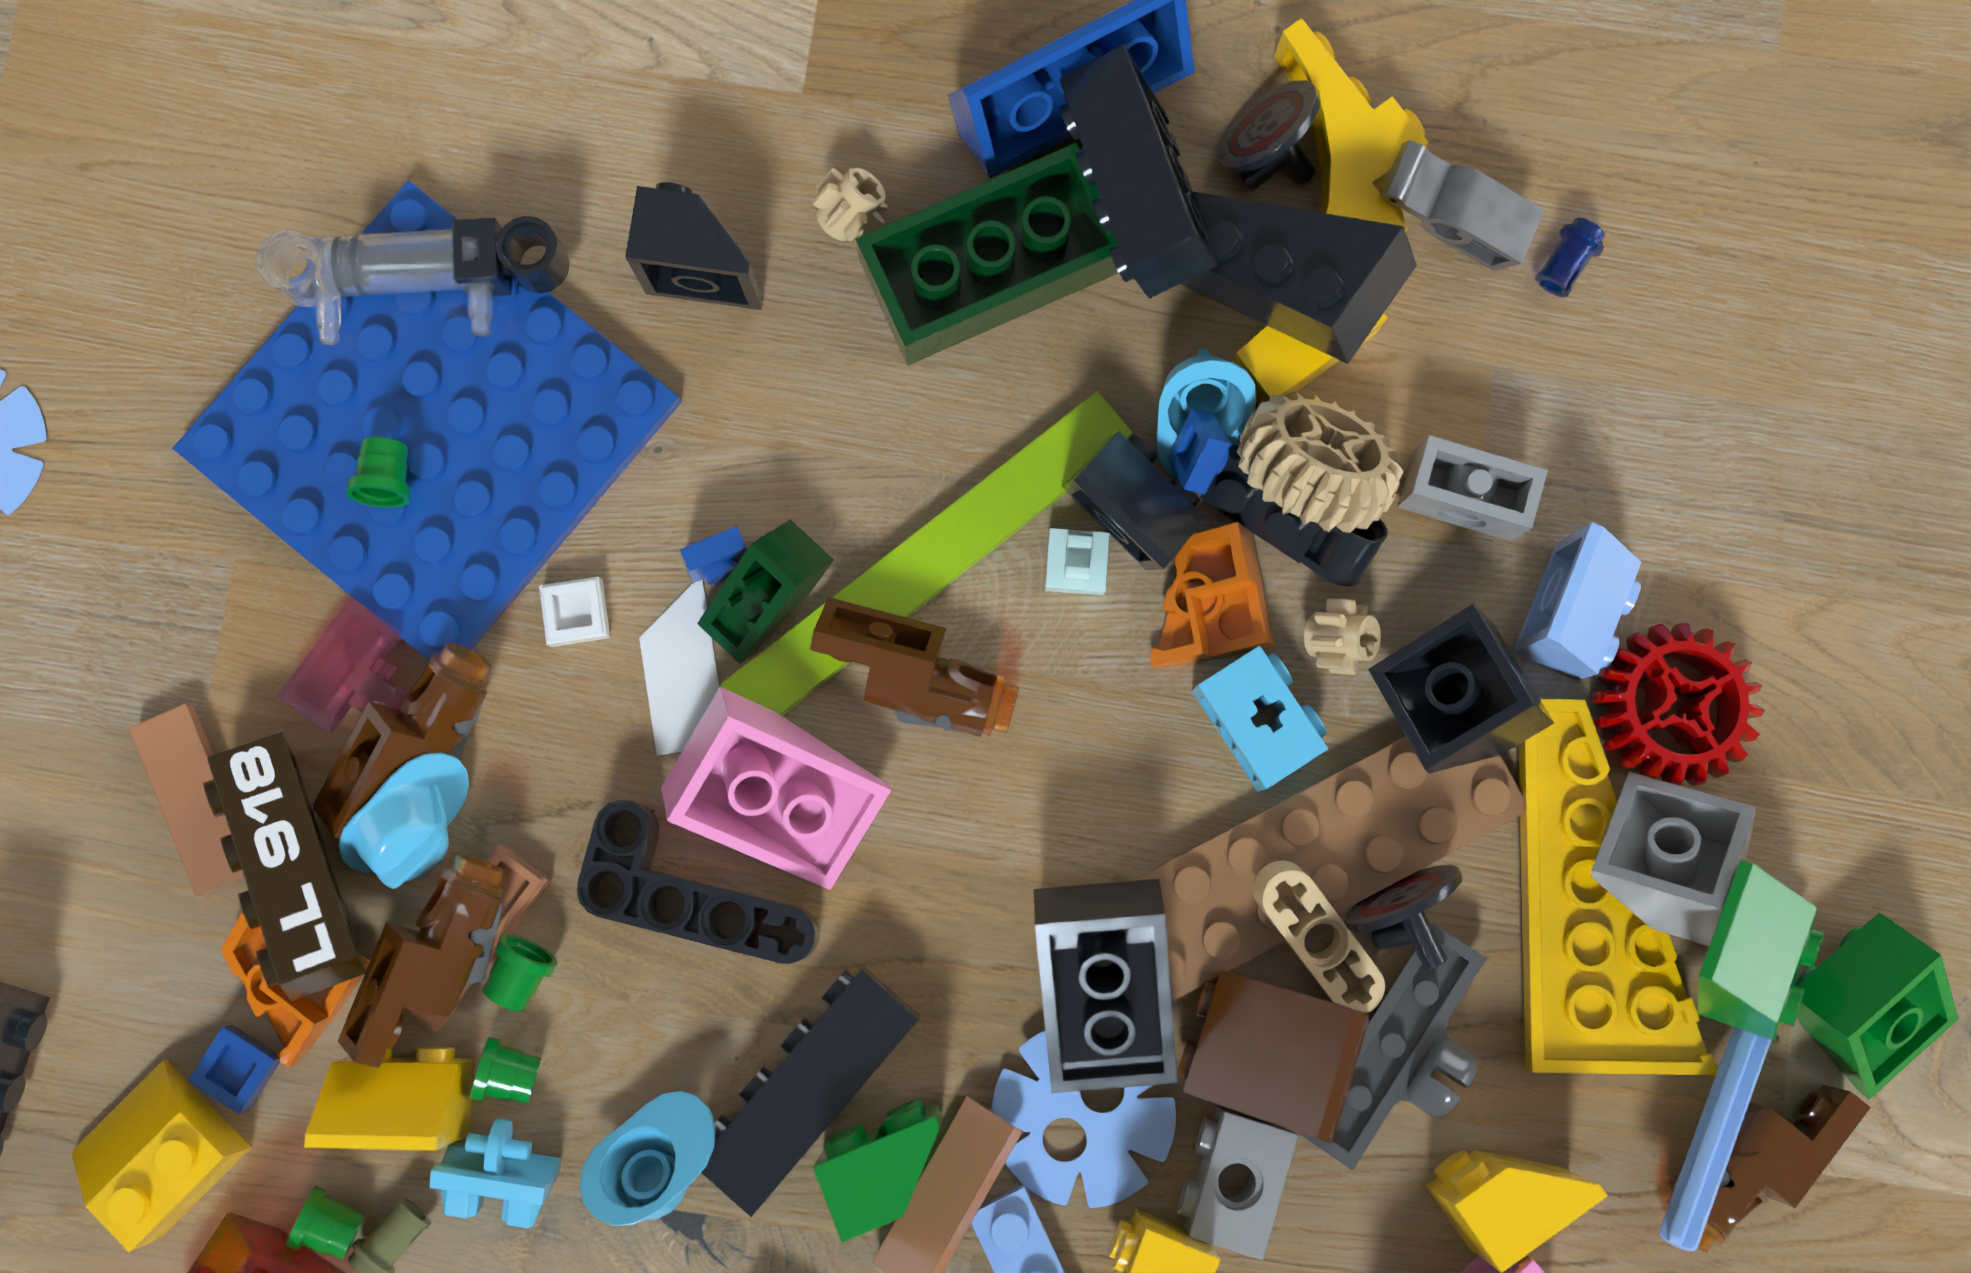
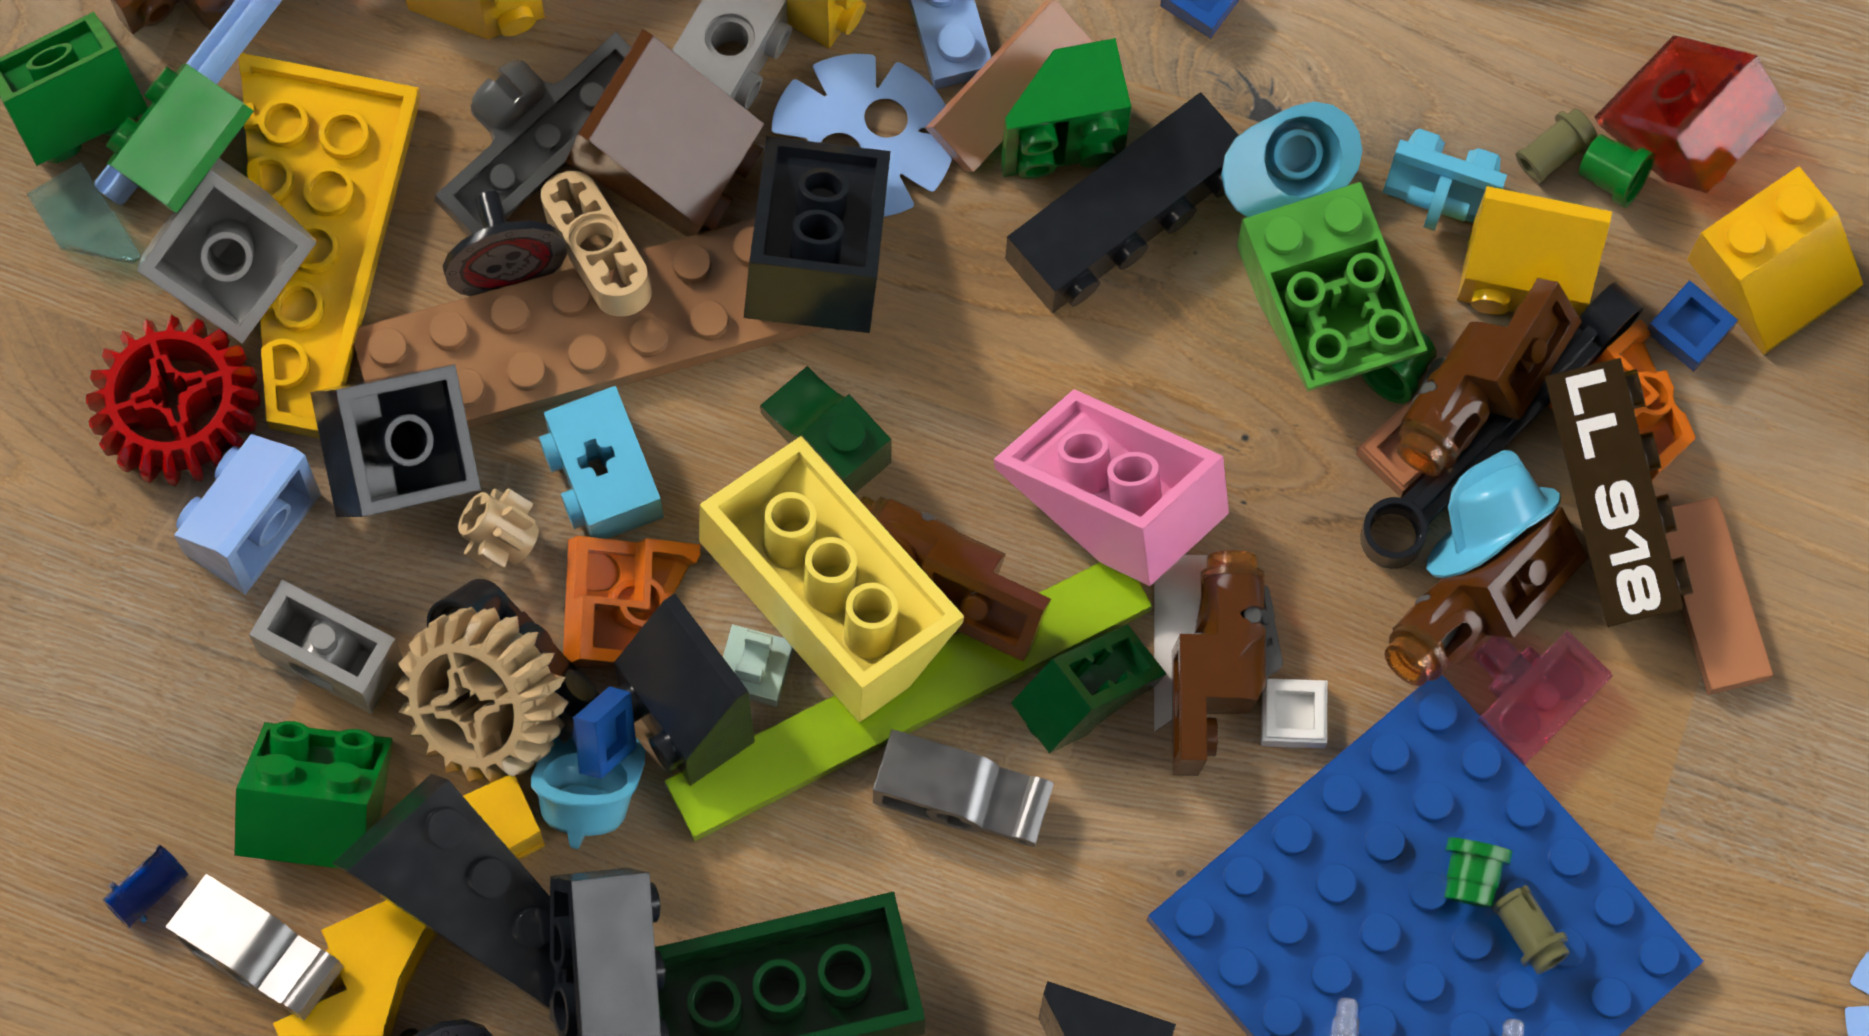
camera: 170 degrees left, 10 degrees down
(312, 1056) = (1601, 325): none -> black piece
(322, 430) = (1531, 930): none -> olive pin
(504, 1073) = (1427, 272): green piece -> none
(589, 1027) = (1329, 287): none -> bright green slope
(638, 640) = (1226, 658): none -> reddish brown plate
(701, 899) = (1202, 400): black beam -> none
(714, 556) = (1135, 731): blue plate -> none
(865, 475) = (960, 789): none -> flat silver piece
(1023, 640) = (828, 577): none -> light yellow slope
(1057, 796) = (832, 426): none -> dark green arch
(1447, 361) = (309, 793): none -> green slope
(1817, 875) = (81, 217): none -> clear light blue slope

